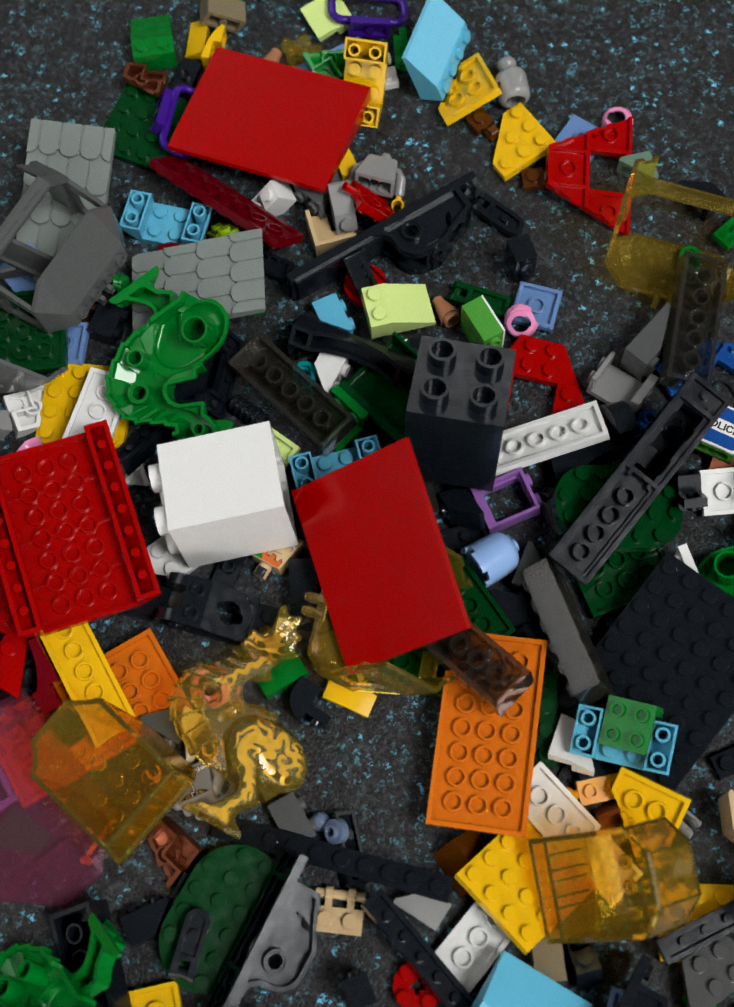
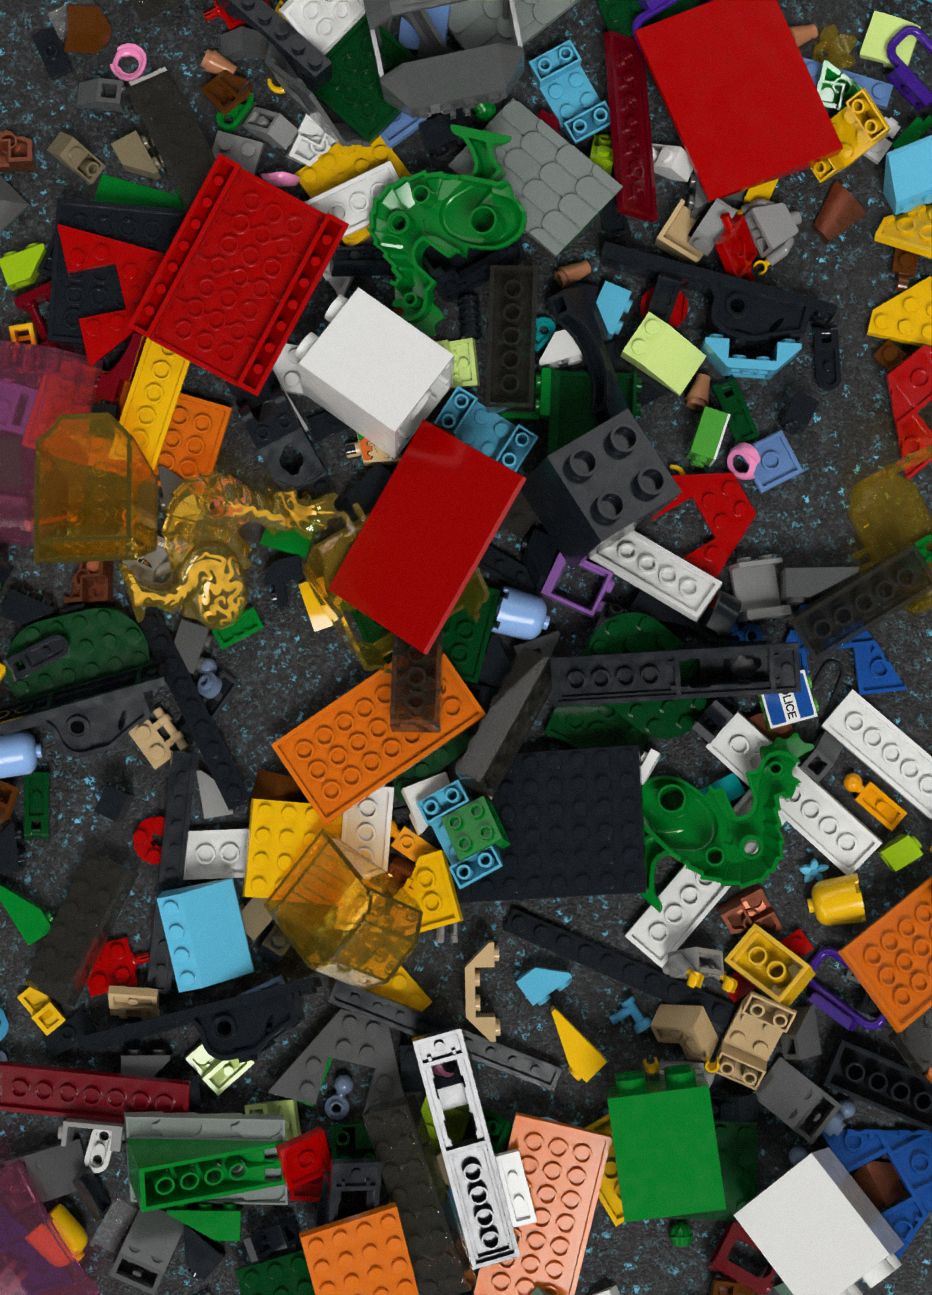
camera: 40 degrees right, 15 degrees up
(283, 324) = (572, 273): none -> nougat cone
(317, 762) = (246, 626): none -> green plate
(408, 133) = (837, 214): none -> copper slope
(442, 276) = (717, 352): none -> medium azure slope

